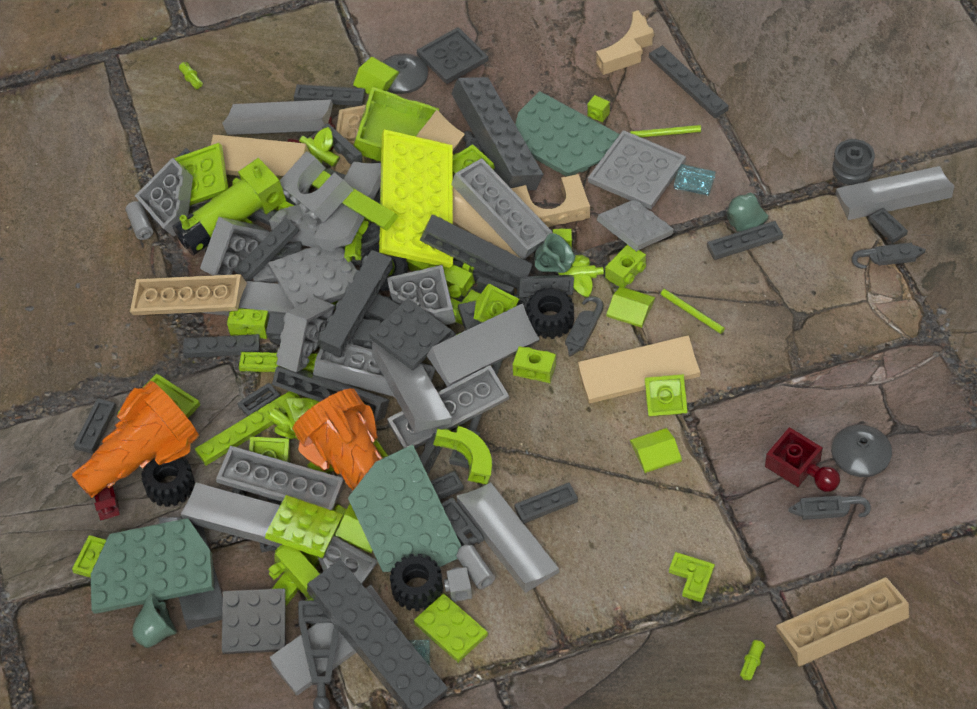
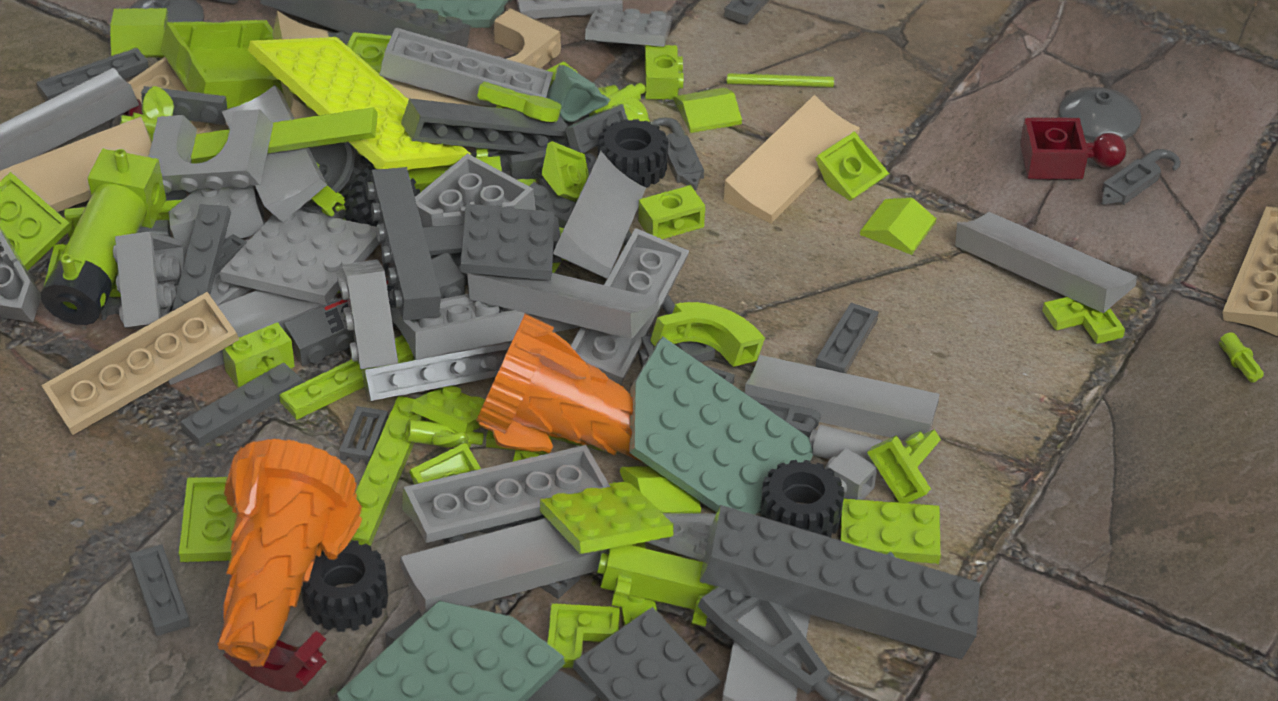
camera: 45 degrees left, 10 degrees down
(244, 572) = (580, 623): none -> lime plate
(481, 596) = (900, 463): none -> lime bracket
(515, 254) = (532, 106): none -> lime piece
(706, 526) = (1044, 261): none -> light grey arch

